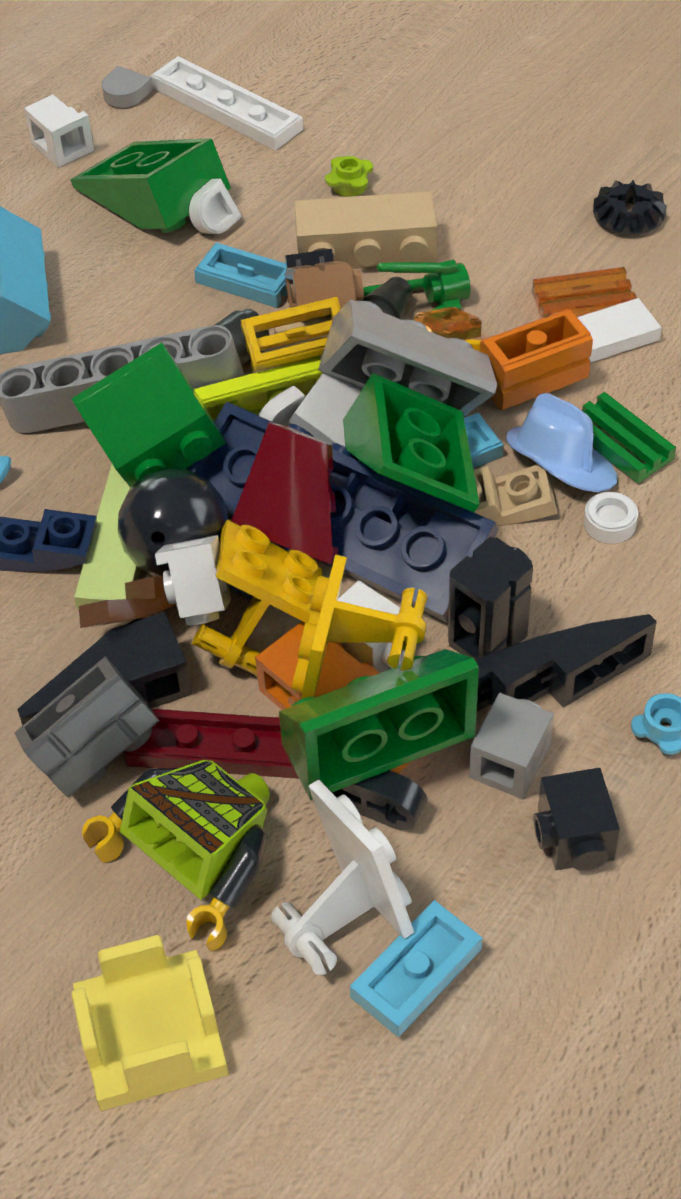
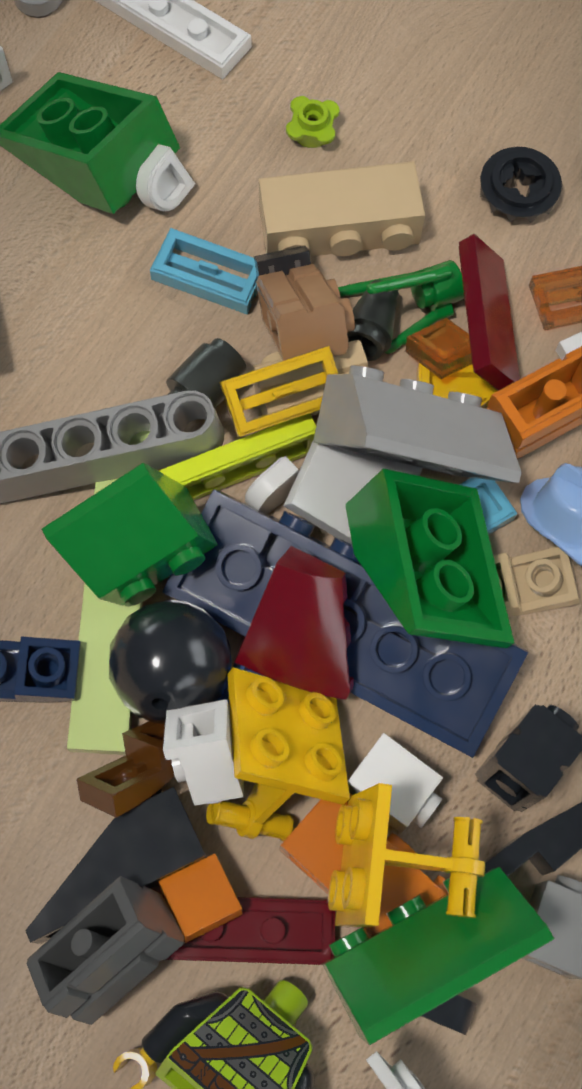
camera: 10 degrees left, 20 degrees up
(179, 703) = (200, 897): none -> orange tile
(486, 293) = (488, 313): none -> dark red tile
(543, 211) = (531, 169): none -> black gear

